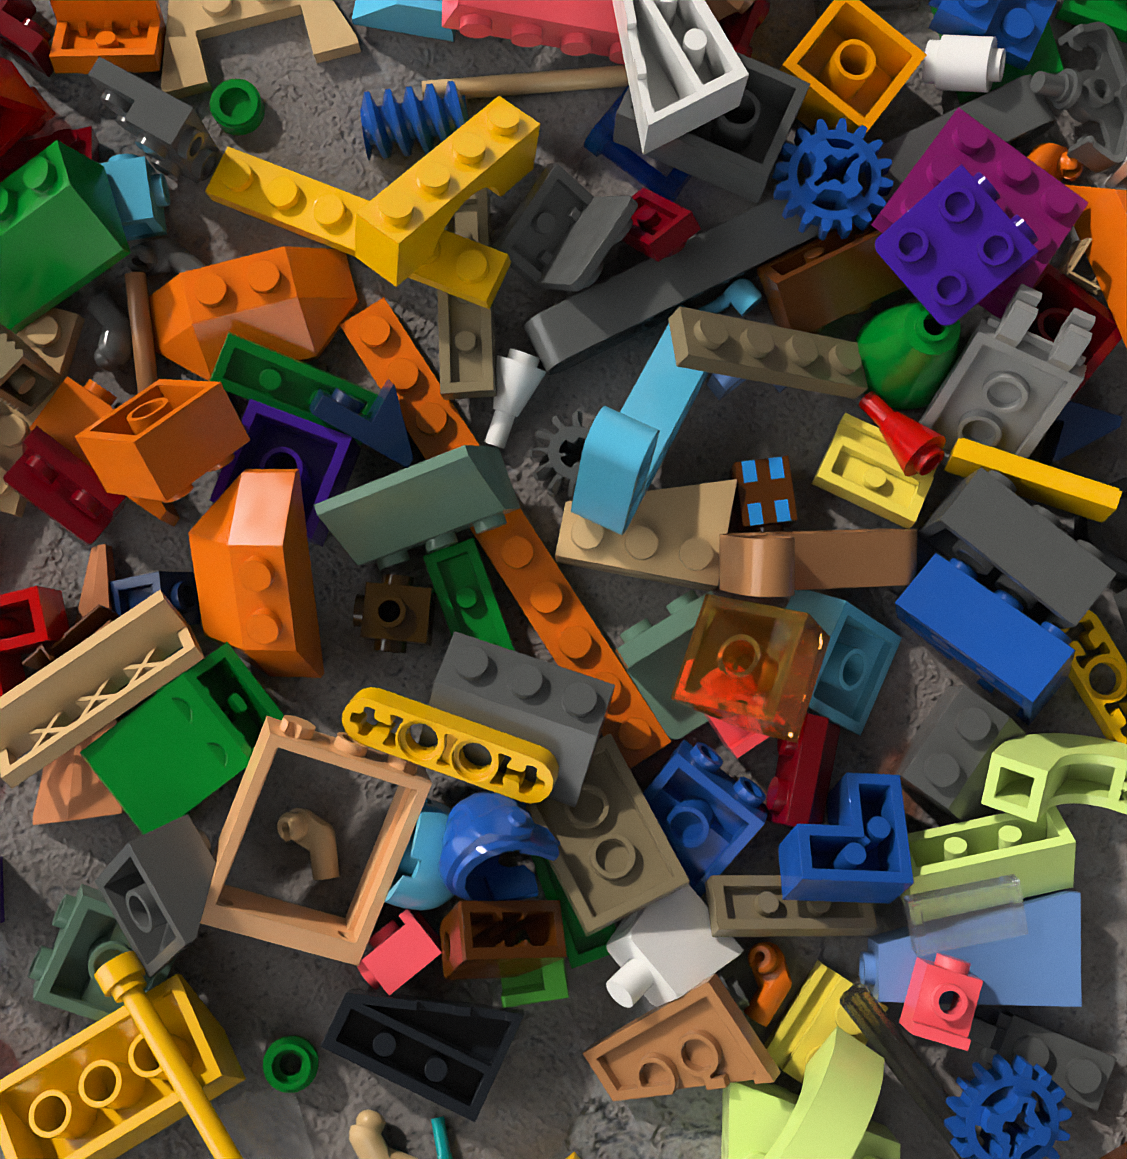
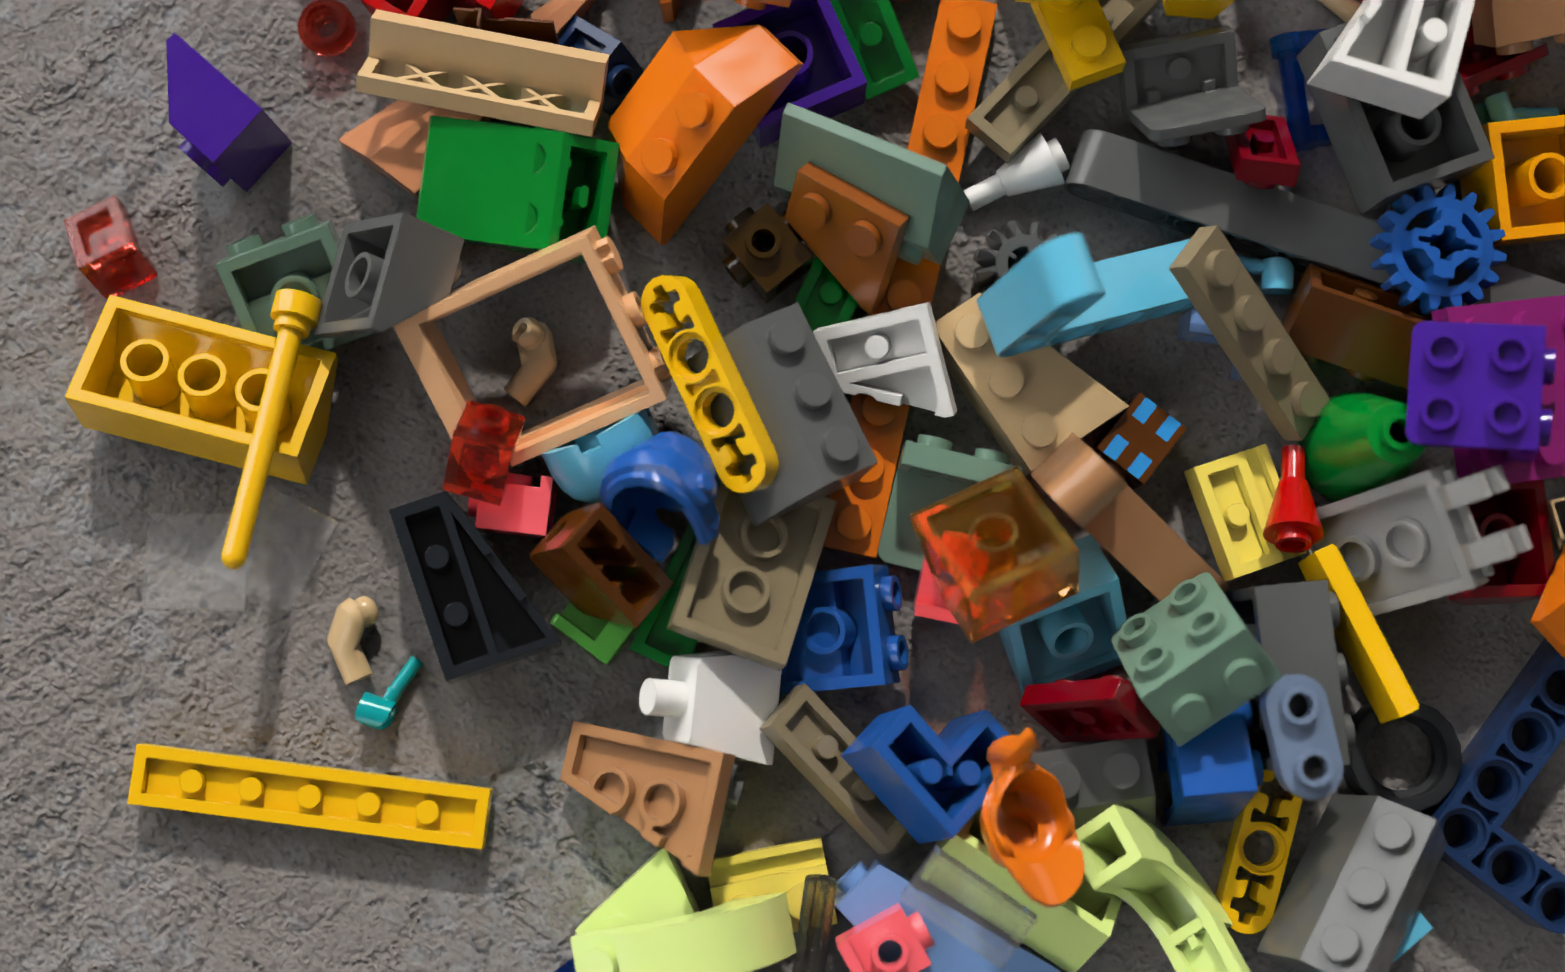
camera: 40 degrees right, 0 degrees up
(282, 1079) = (335, 498): green plate -> none
(344, 942) = (482, 452): none -> clear red bracket
(379, 429) = (892, 99): dark blue slope -> none
(439, 549) = (848, 232): none -> dark orange wing
(550, 604) = (891, 358): none -> white wing
(772, 981) = (771, 812): orange arm -> none
(776, 49) = (1499, 108): none -> medium azure hand
(803, 774) = (956, 679): dark red bracket -> none
(917, 696) = (1090, 710): none -> dark red bracket
(946, 606) = (1193, 658): none -> sand green bracket
(955, 823) = (1030, 823): none -> orange hair
(1071, 588) = (1296, 739): none -> sand blue plate
(1074, 429) = (1433, 634): dark blue slope -> none

